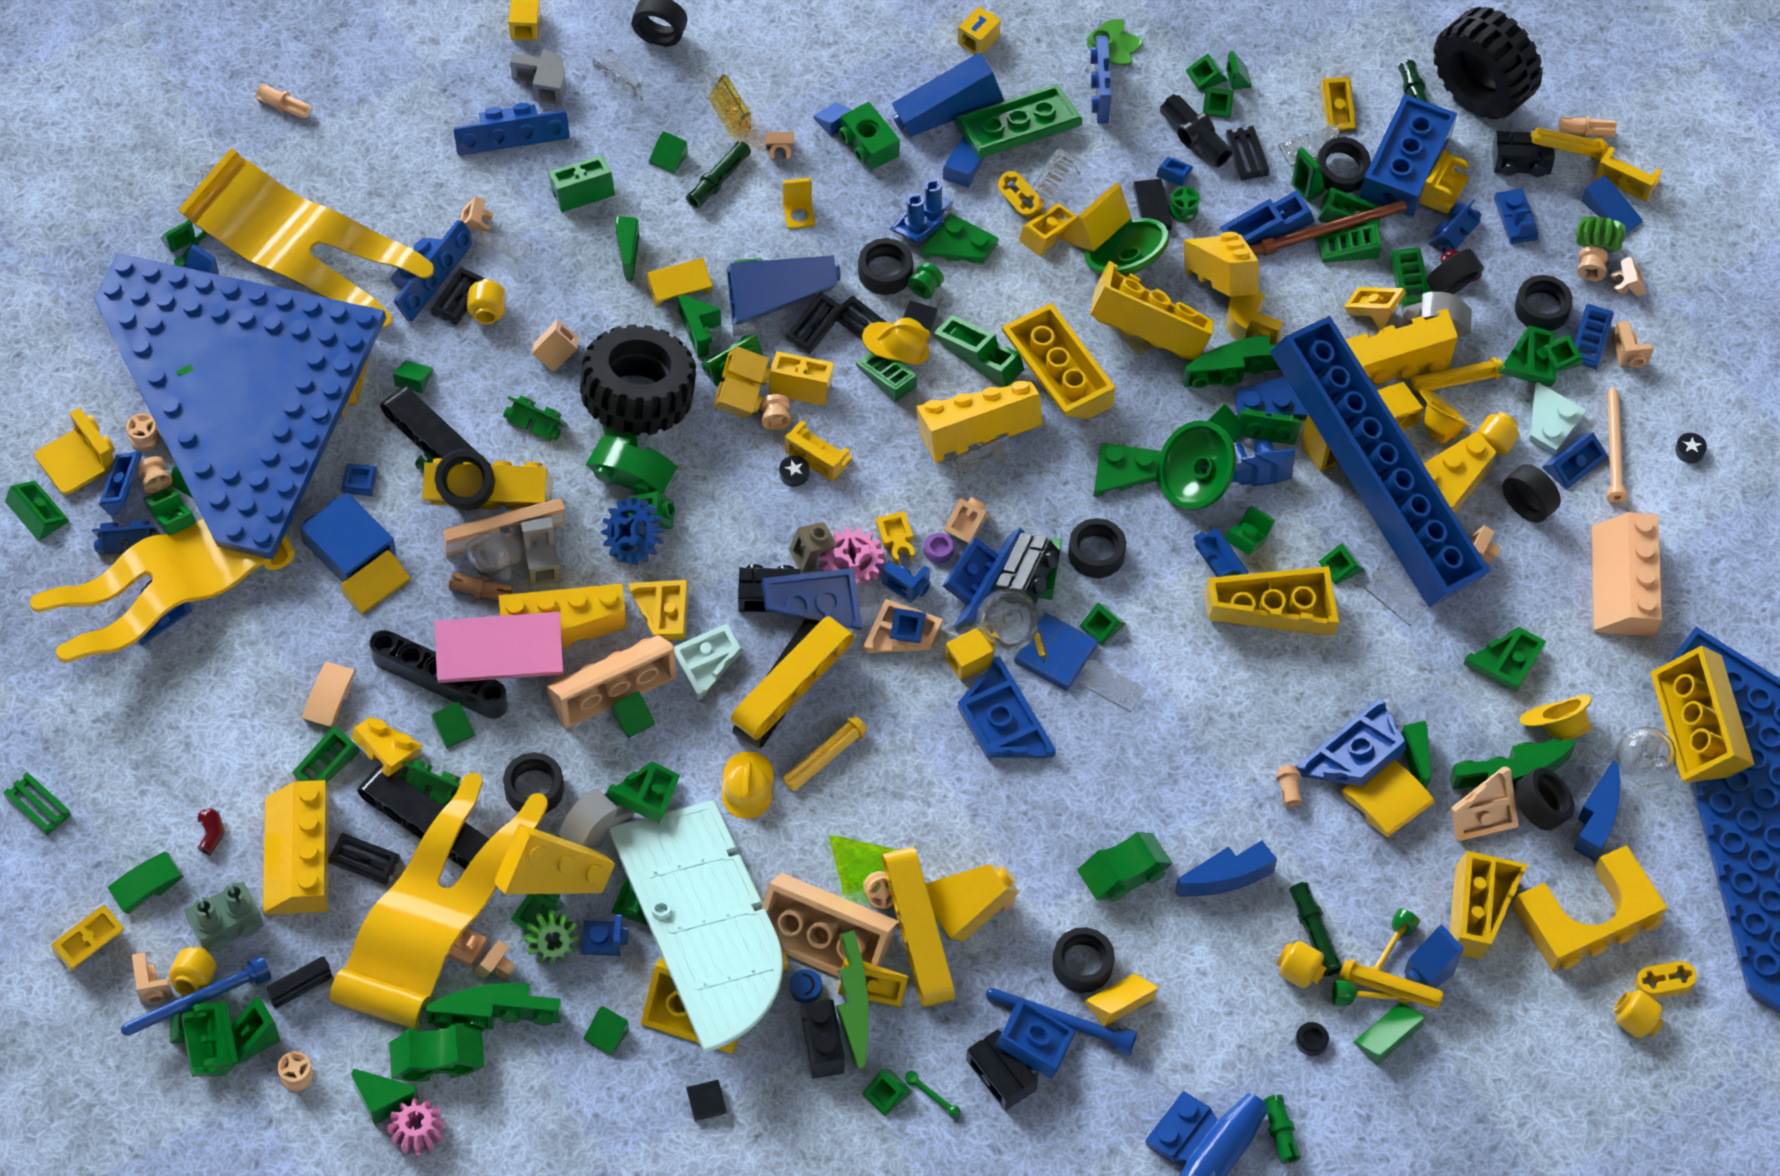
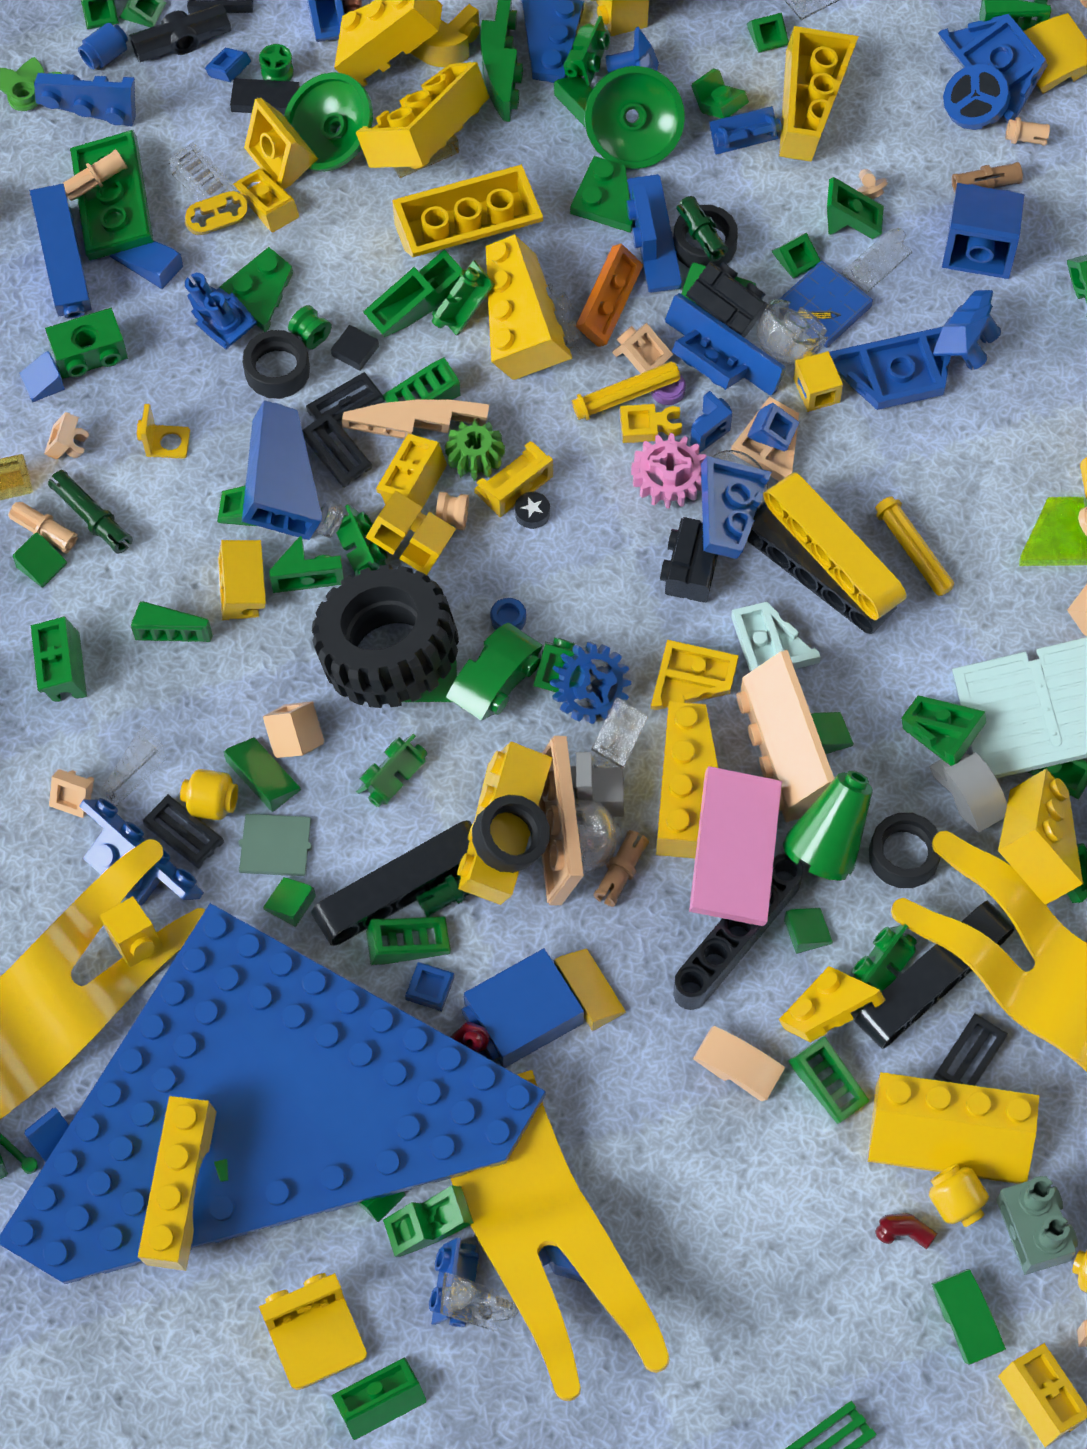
camera: 75 degrees left, 5 degrees up
(105, 541) = (475, 1303): none -> clear hinge
(120, 481) = (374, 1273): blue slope -> none
(143, 424) = (292, 1234): light nougat wheel -> none
(154, 474) = (369, 1233): light nougat wheel -> none
(195, 331) = (169, 1212): none -> yellow arch
(240, 859) = (958, 1195): none -> yellow head
(312, 505) = (472, 1036): none -> dark red arm
(359, 272) = (131, 931): none -> yellow brick
(386, 436) = (393, 953): none -> green slope
(459, 357) = (275, 845): none -> sand green piece
(515, 333) = (261, 773): none -> green slope
(523, 715) = (832, 828): none -> green cone
(590, 558) = (618, 735): none -> clear hinge
(691, 472) = (509, 611): none -> blue tile
(697, 148) = (43, 524): none -> light nougat axle
(747, 785) = (936, 631): yellow piece -> none
(809, 543) = (648, 505): dark tan bracket -> none
(837, 417) = (474, 449): none -> bright green gear
(851, 364) = (400, 417): none -> light nougat slope
(898, 341) = (386, 368): yellow piece -> none
(901, 488) = (625, 390): none -> yellow axle
(975, 374) = (463, 299): none -> green hinge
(1015, 485) = (609, 295): none -> orange plate
(1025, 100) = (94, 175): none -> light nougat axle
(1041, 749) = (965, 328): none -> blue connector
(1091, 534) = (702, 228): none -> dark green pin
(1092, 499) = (653, 233): none -> blue bracket
(1154, 651) = (852, 208): none -> green slope
(1164, 81) = (103, 46): none -> blue brick
(1165, 757) = (983, 230): none -> blue slope
(1191, 665) = (872, 187): none -> light nougat plate
(1228, 760) = (1007, 175): none -> medium nougat pin
(1313, 736) = (976, 96): none -> blue tile

